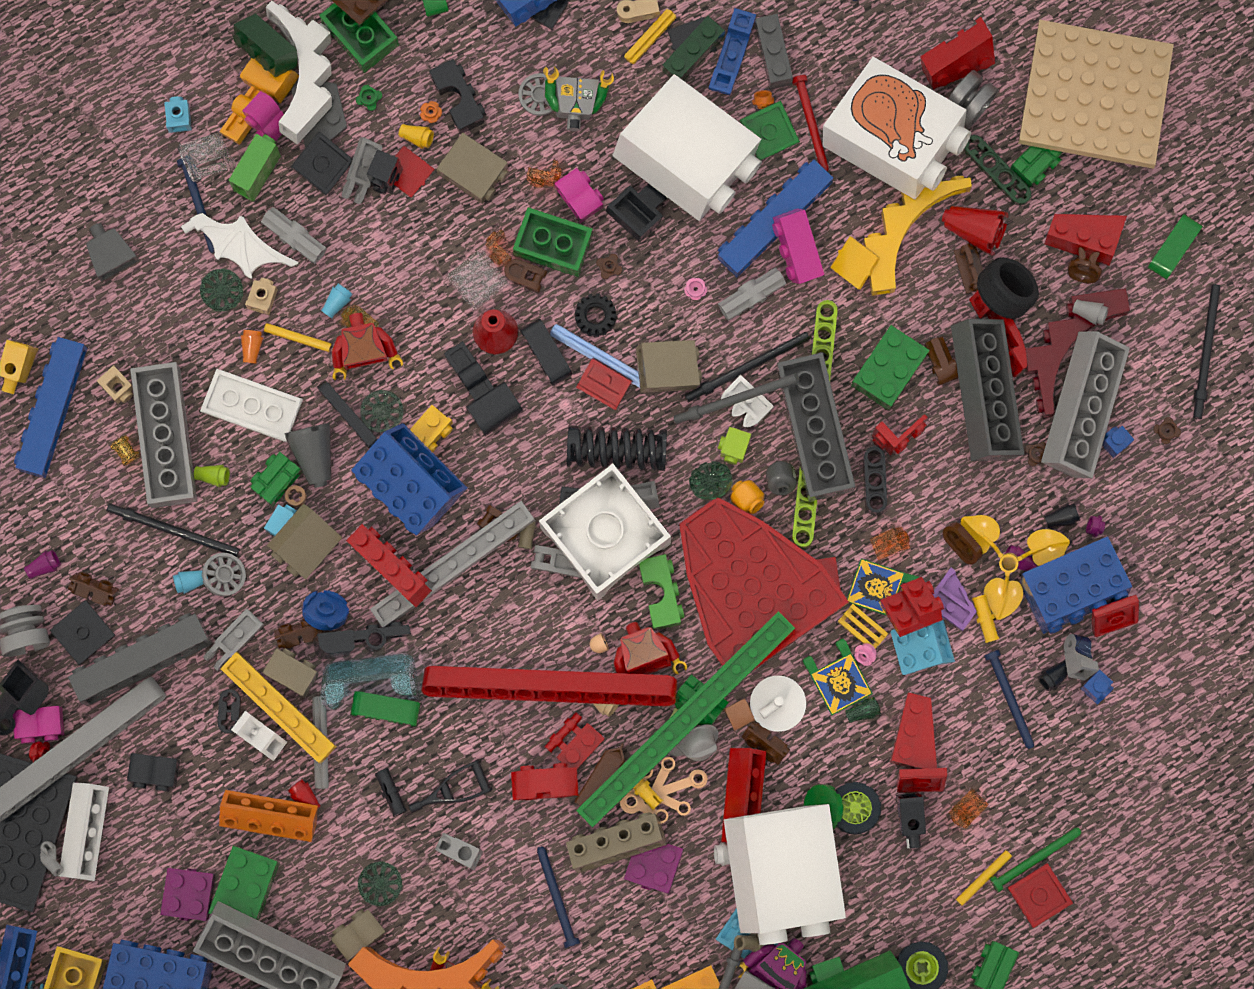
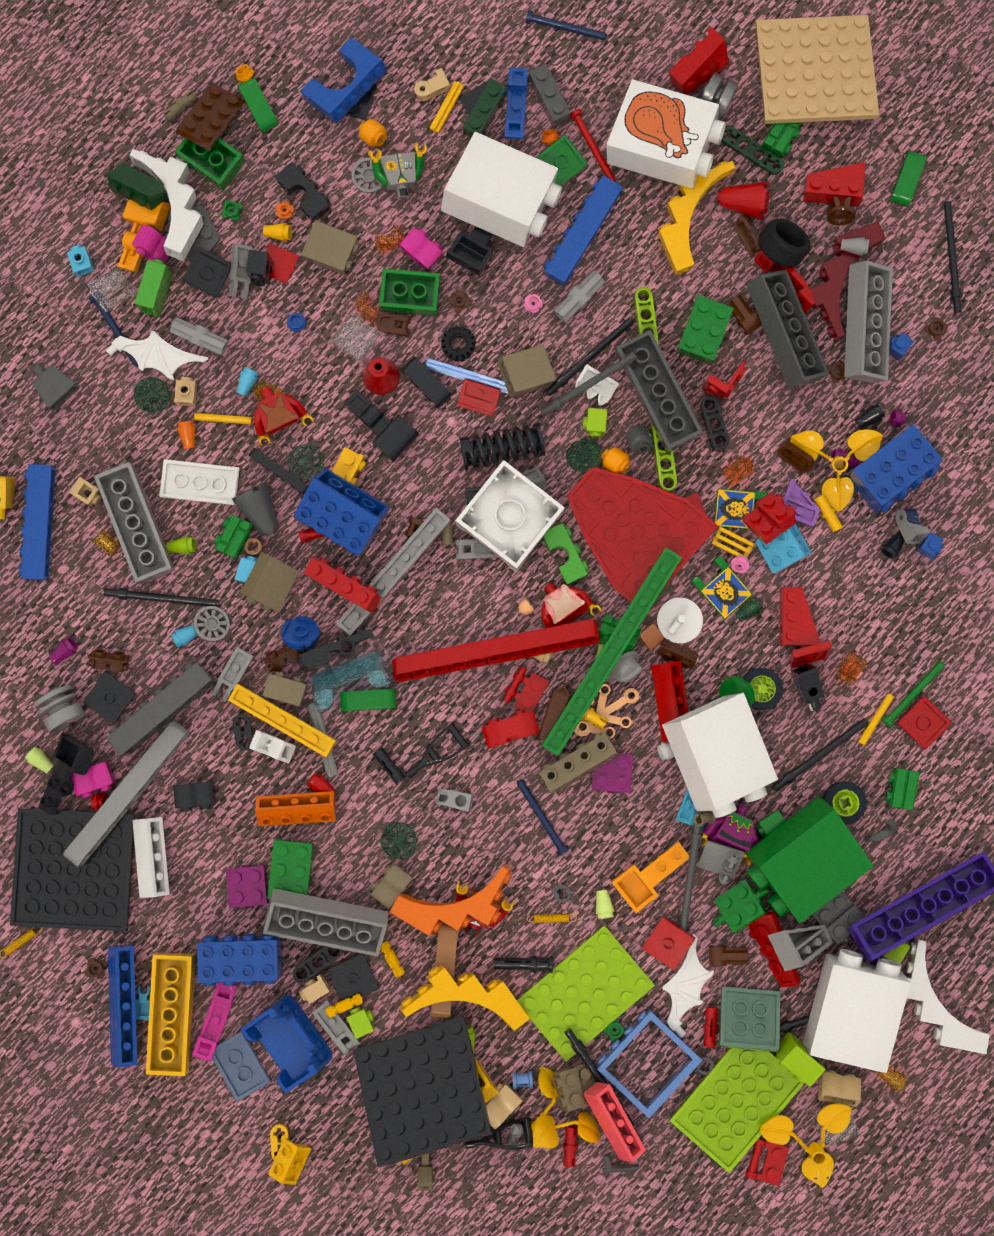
camera: 15 degrees left, 5 degrees up
(49, 858) = (128, 885): light grey arm -> none
(364, 497) = (308, 534): none -> red pin
(411, 245) = (296, 322): none -> blue plate
(555, 46) = (372, 133): none -> light orange head
(797, 246) = (607, 248): dark pink brick -> none
(855, 262) = (656, 251): yellow piece -> none
(864, 921) = (790, 776): none -> black bar
(1010, 698) = (862, 571): dark blue bar -> none
(1115, 616) = (932, 486): red plate -> none

